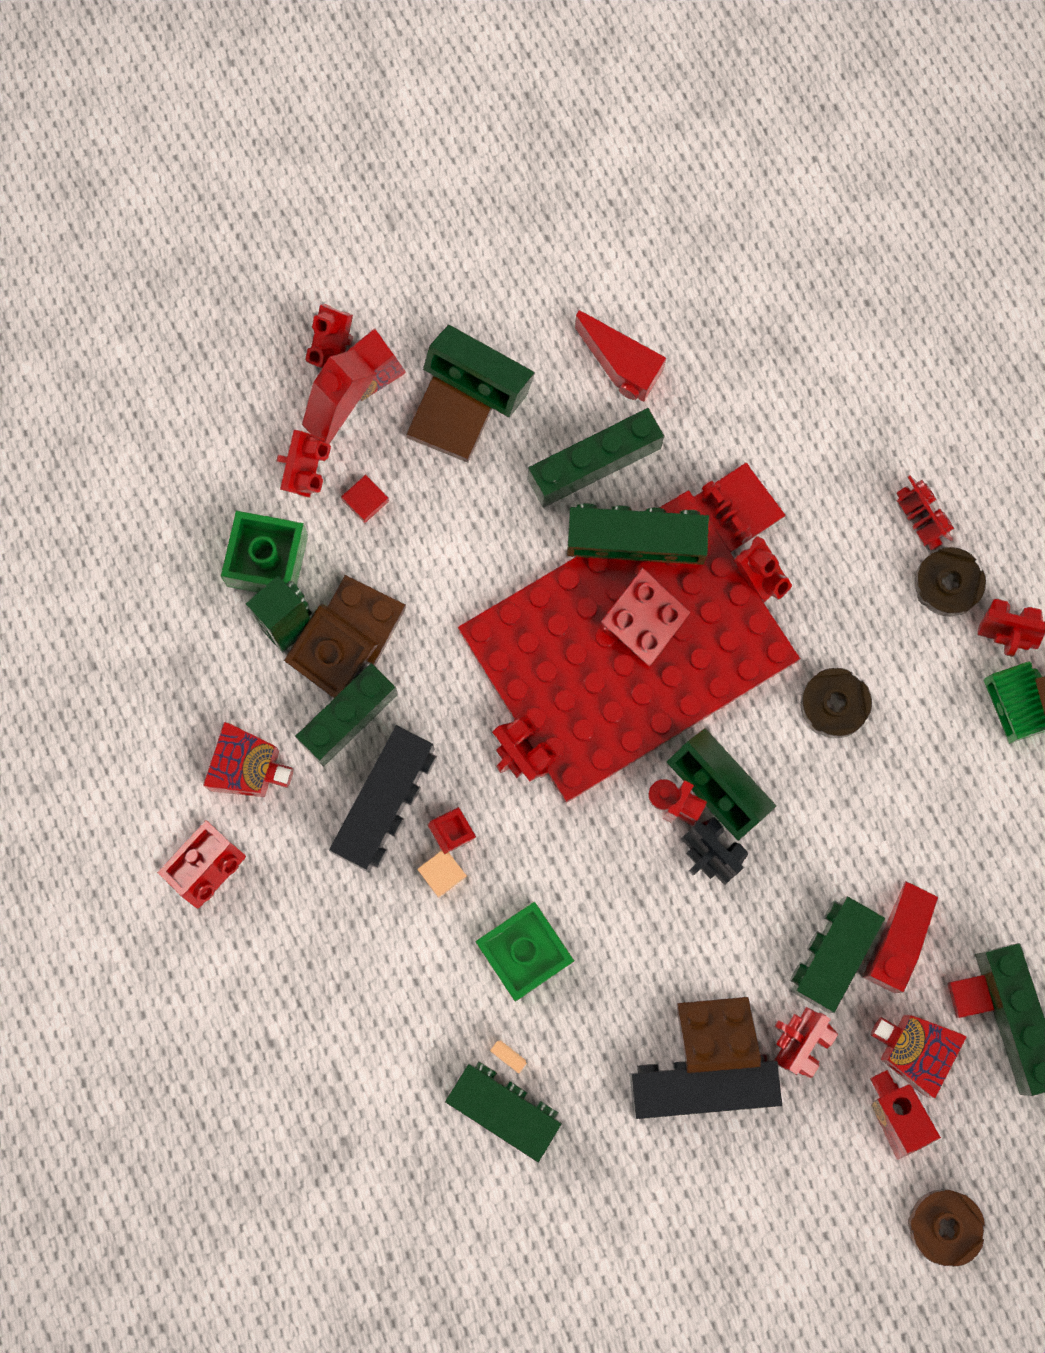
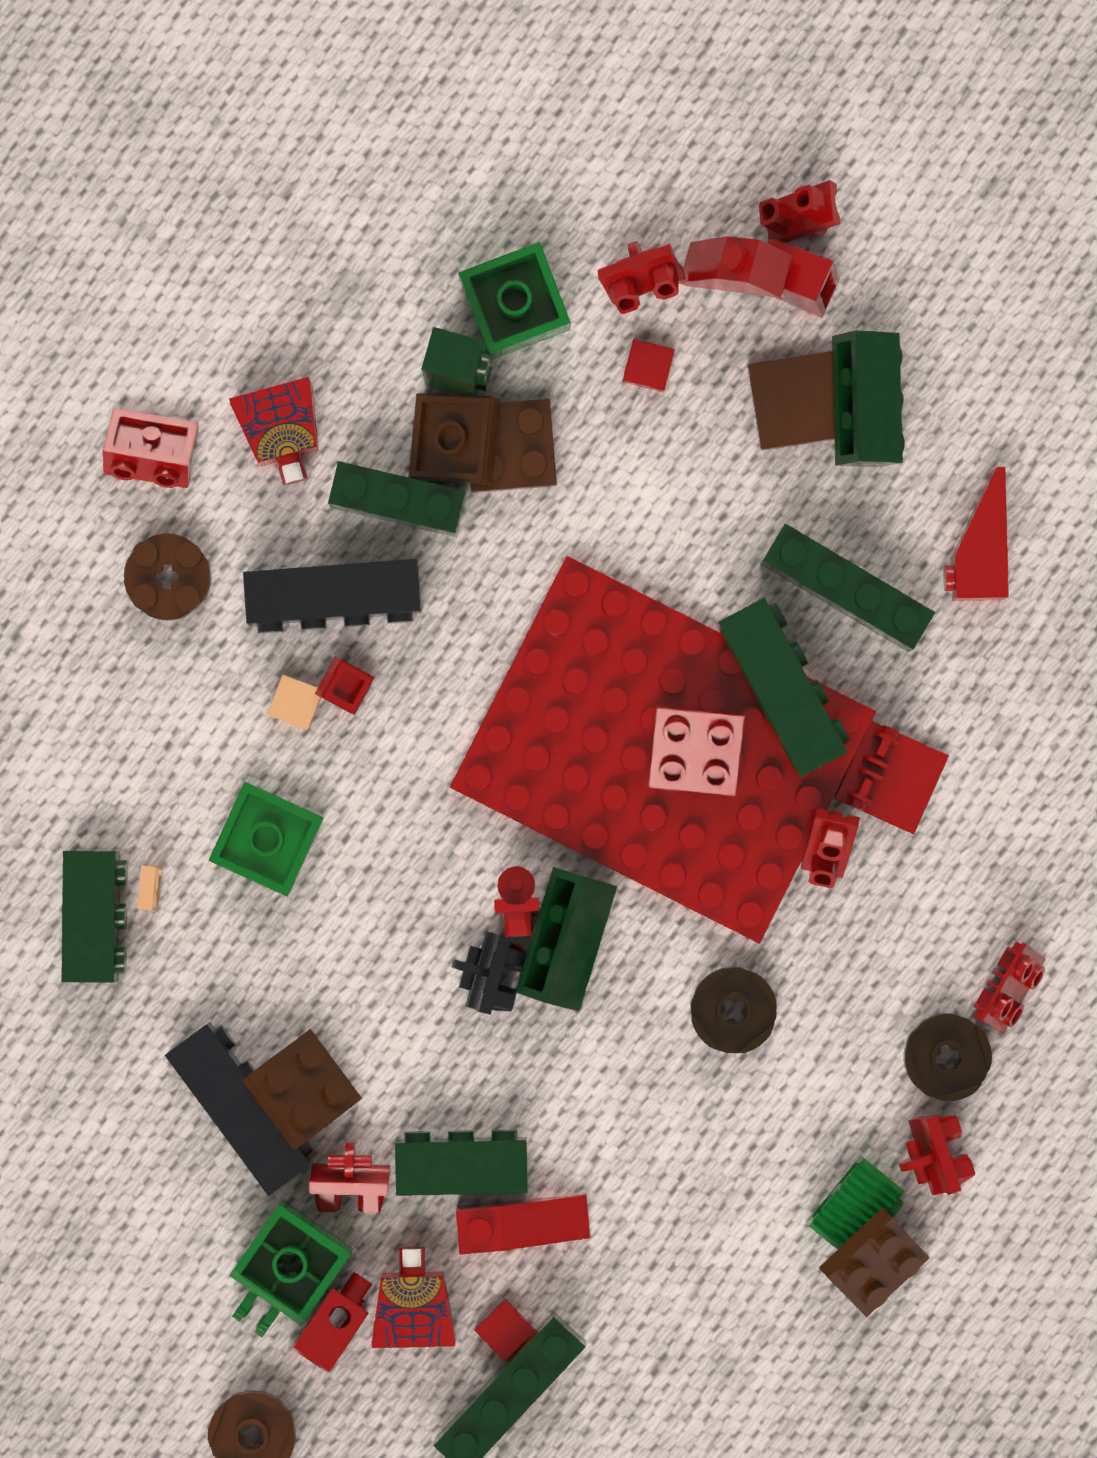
camera: 60 degrees right, 10 degrees up
(302, 928) = (149, 558): none -> reddish brown plate
(518, 753) = (469, 706): red hips -> none
(860, 1130) = (294, 1291): none -> green hinge

